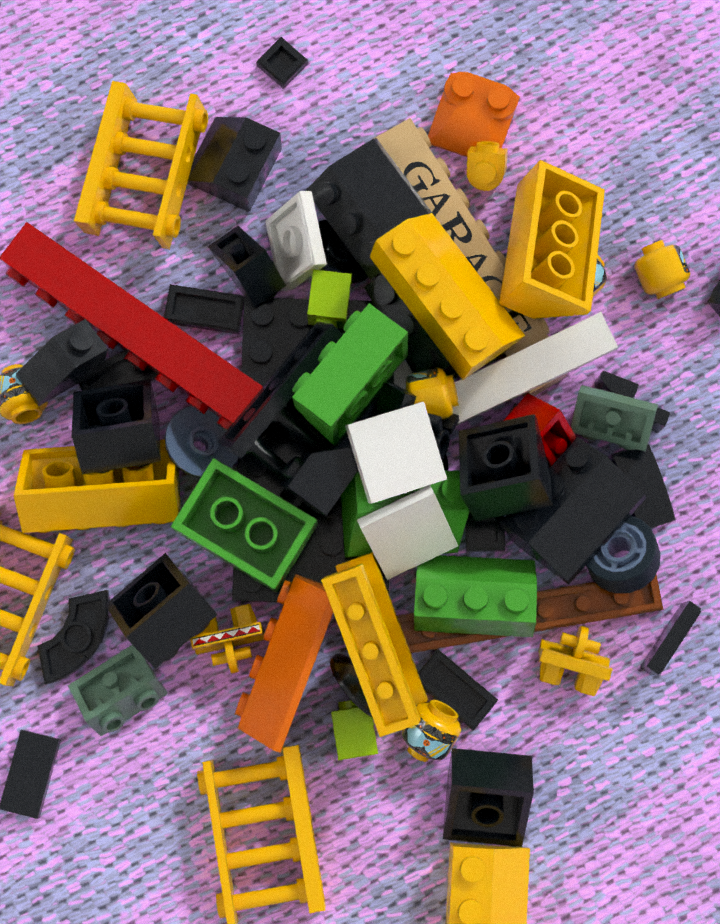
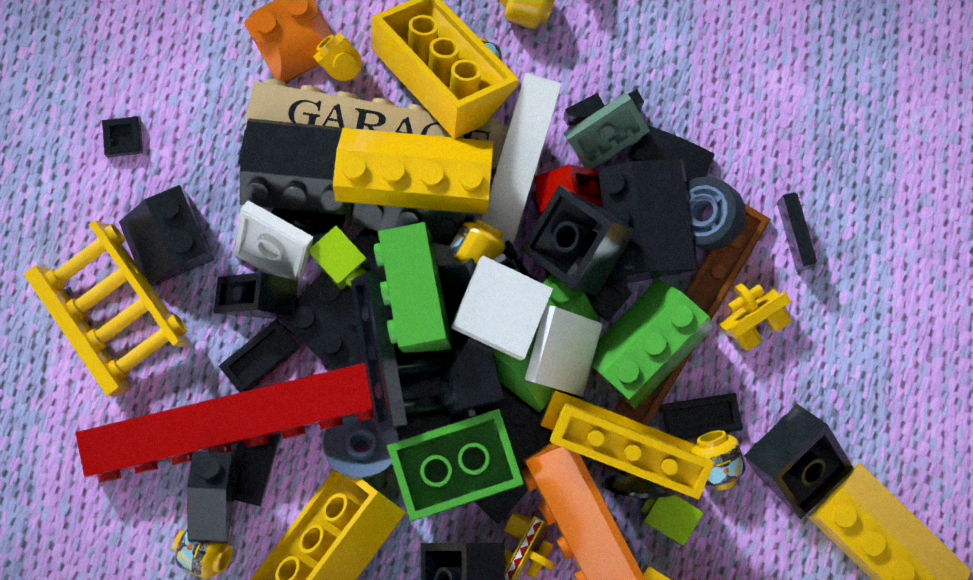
camera: 45 degrees left, 0 degrees up
(116, 427) = (295, 498): black brick -> none

